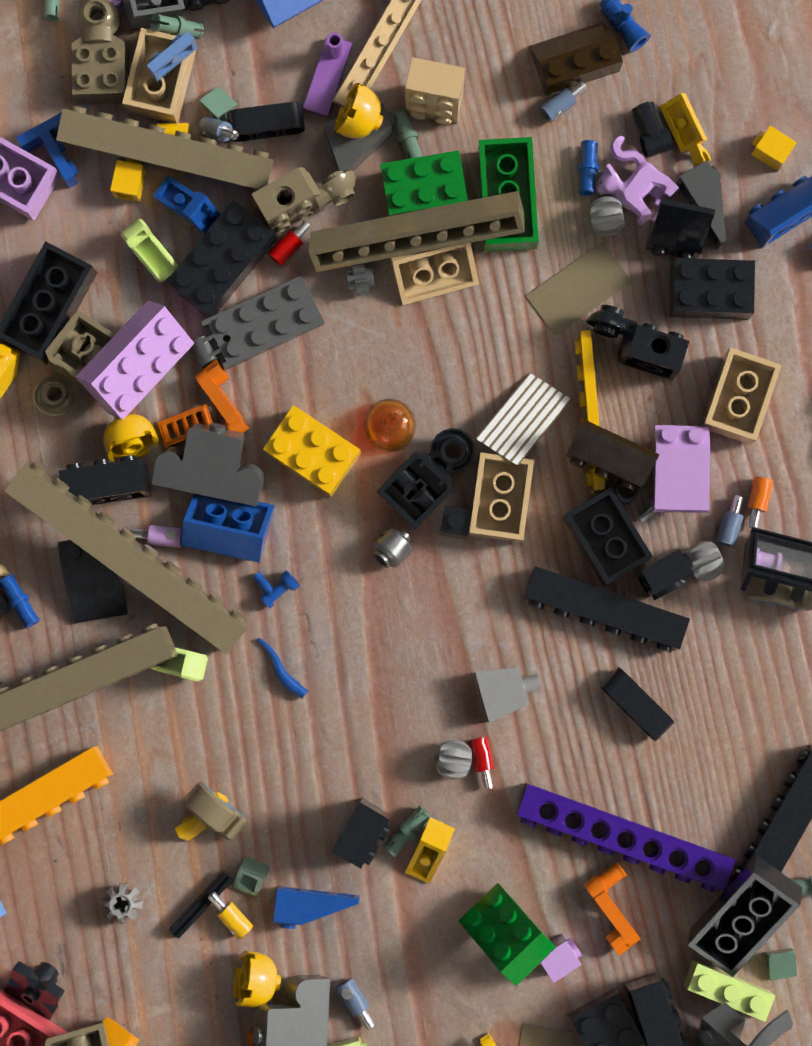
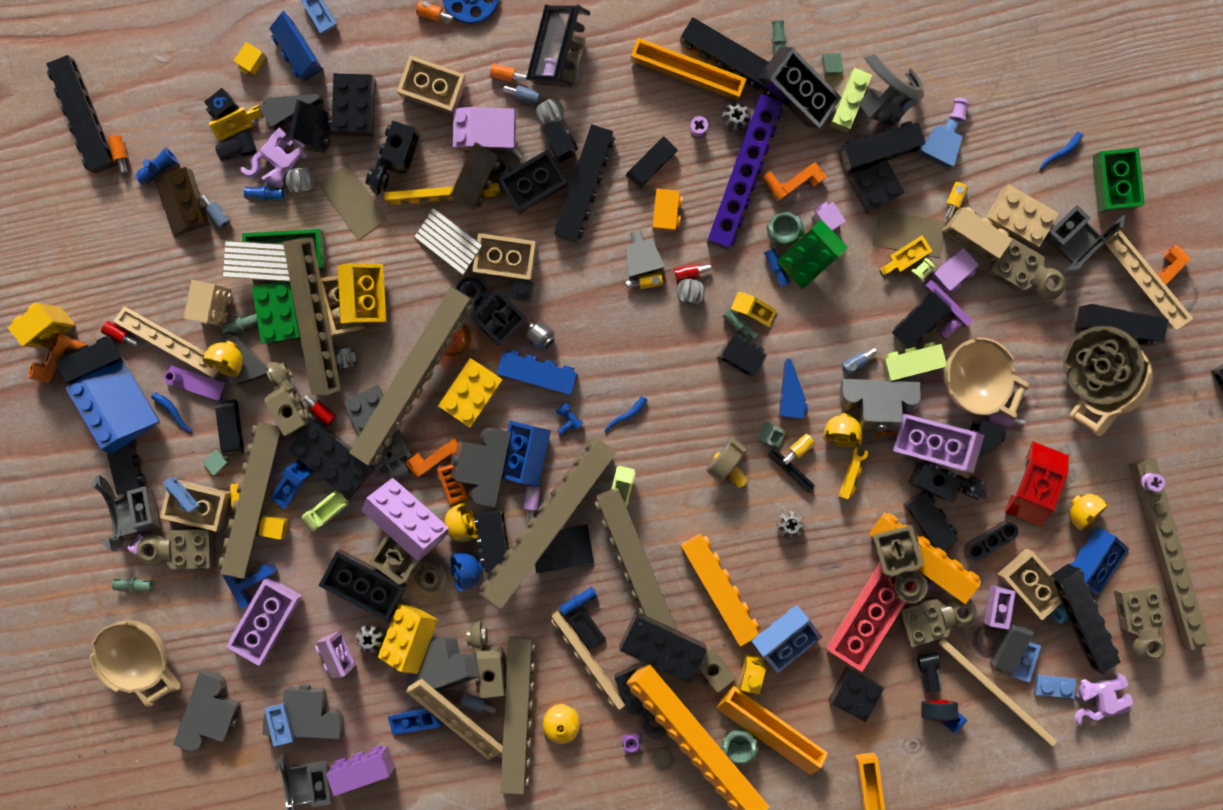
camera: 90 degrees left, 5 degrees up
(36, 987) = (848, 584): black plant -> none
(63, 444) = (466, 570): none -> blue cylinder
(176, 25) = (158, 492): sand green pin -> none
(197, 994) = (853, 472): none -> yellow plate
(217, 129) = (235, 462): sand blue piece -> none
(296, 41) = (167, 404): none -> blue animal
(333, 369) = (412, 376): none -> dark tan brick
(339, 543) = (537, 373): none -> blue brick
(449, 300) = (361, 293): none -> yellow brick
(469, 697) = (647, 280): none -> yellow piece
(482, 886) = (777, 270): none -> blue pin
(493, 154) = (255, 261): none -> white sticker
(543, 895) = (785, 229): none -> sand green hair
(569, 725) = (666, 210): none -> light orange brick
(697, 770) = (700, 132): none -> lavender bush
(710, 108) = (220, 104): none -> black brick
(710, 829) = (739, 112): none -> light grey piece
(768, 755) = (687, 69): none -> light orange brick

